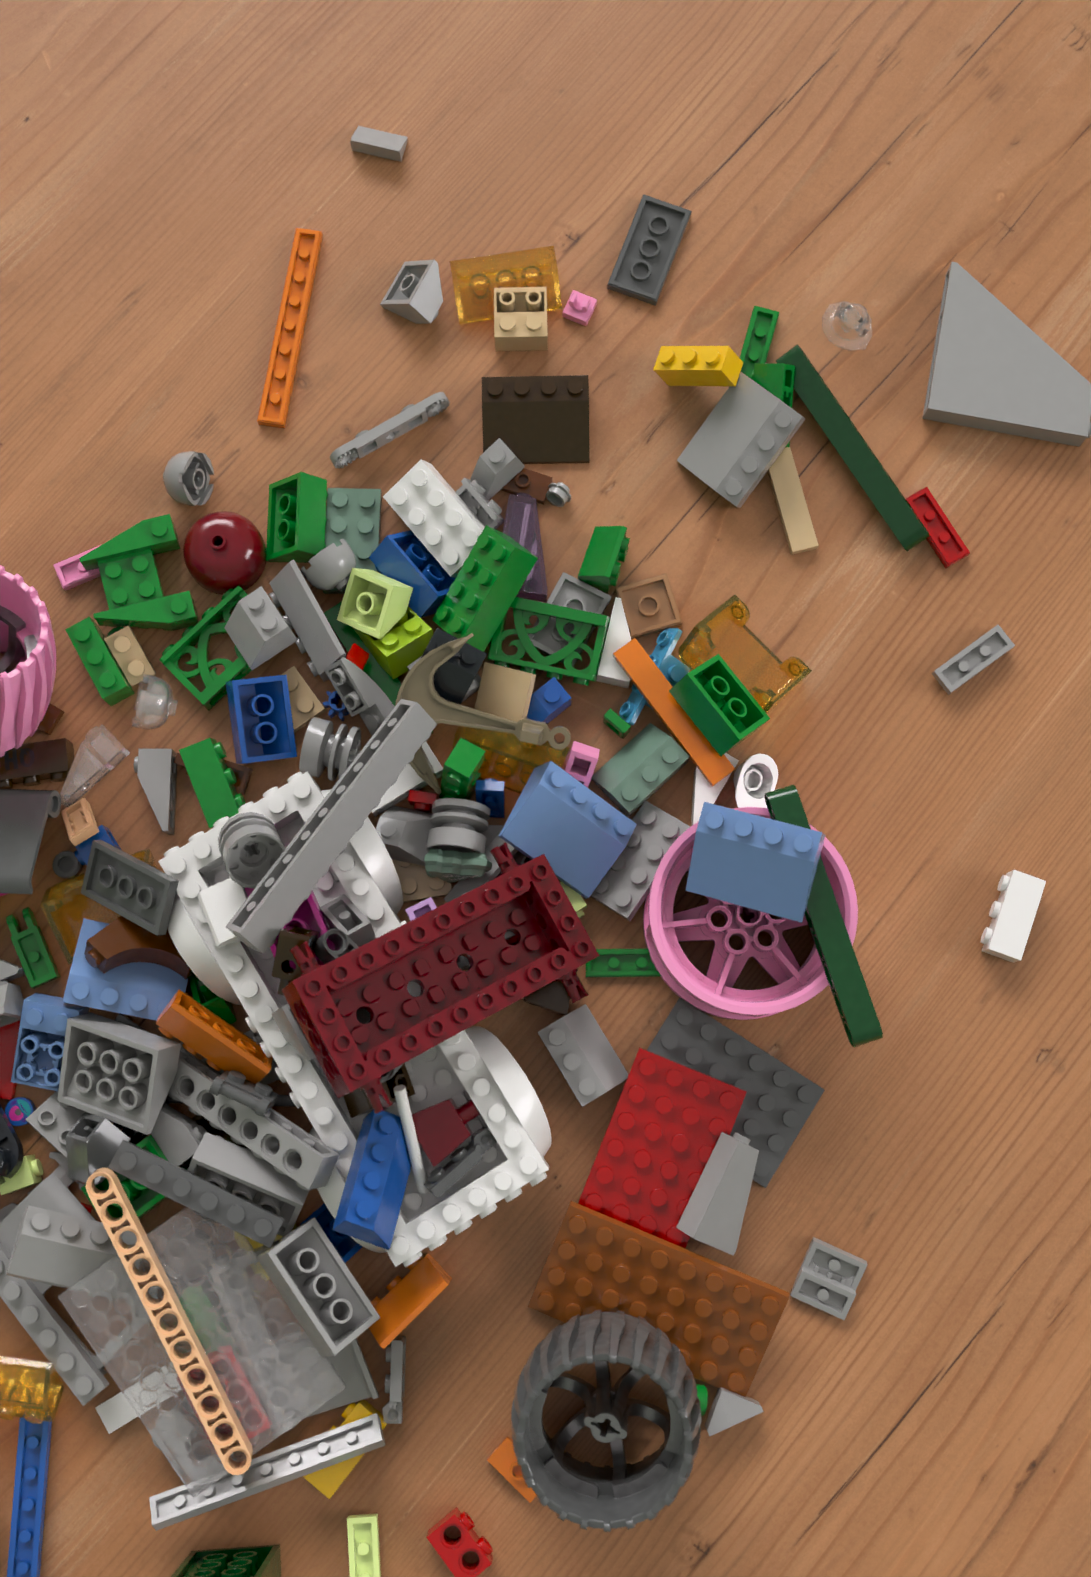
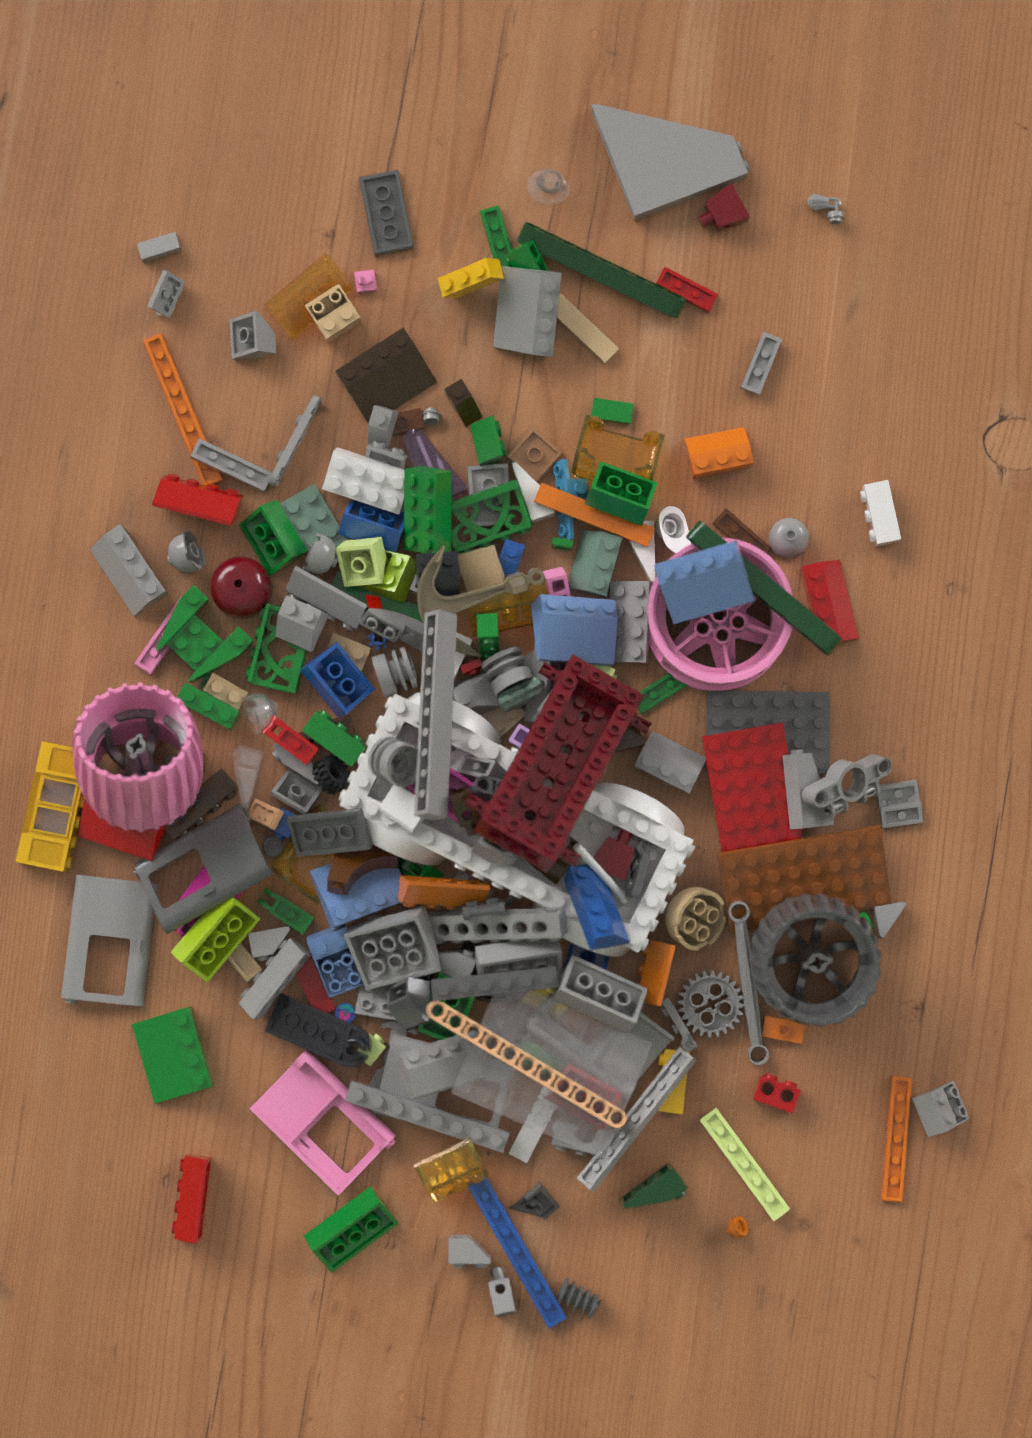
camera: 30 degrees left, 5 degrees up
(92, 1489) = (536, 1202): none -> dark grey slope
(116, 459) = (128, 570): none -> light grey slope
(131, 820) = (297, 792): none -> light grey slope
(161, 755) = (291, 740): none -> red plate
(171, 820) = (331, 774): none -> black tyre
(239, 427) = (198, 500): none -> red slope
(300, 412) = (231, 465): none -> light grey plate
(351, 190) = (166, 294): none -> light grey bracket
(448, 1408) = (719, 1020): none -> light grey gear
(492, 794) = (514, 638): blue hinge -> none
(495, 1263) = (695, 917): none -> tan cylinder
(503, 1399) = (748, 984): none -> light grey piece
(603, 497) = (463, 403): none -> dark brown slope
(749, 1216) = (828, 791): none -> light grey piece
(768, 610) = (612, 410): none -> green tile
(826, 820) = (736, 529): none -> reddish brown tile
(862, 731) = (719, 452): none -> orange slope
(885, 878) = (788, 538): none -> light grey cylinder
(892, 974) = (829, 597): none -> red slope
(1034, 464) = (724, 210): none -> dark red torso

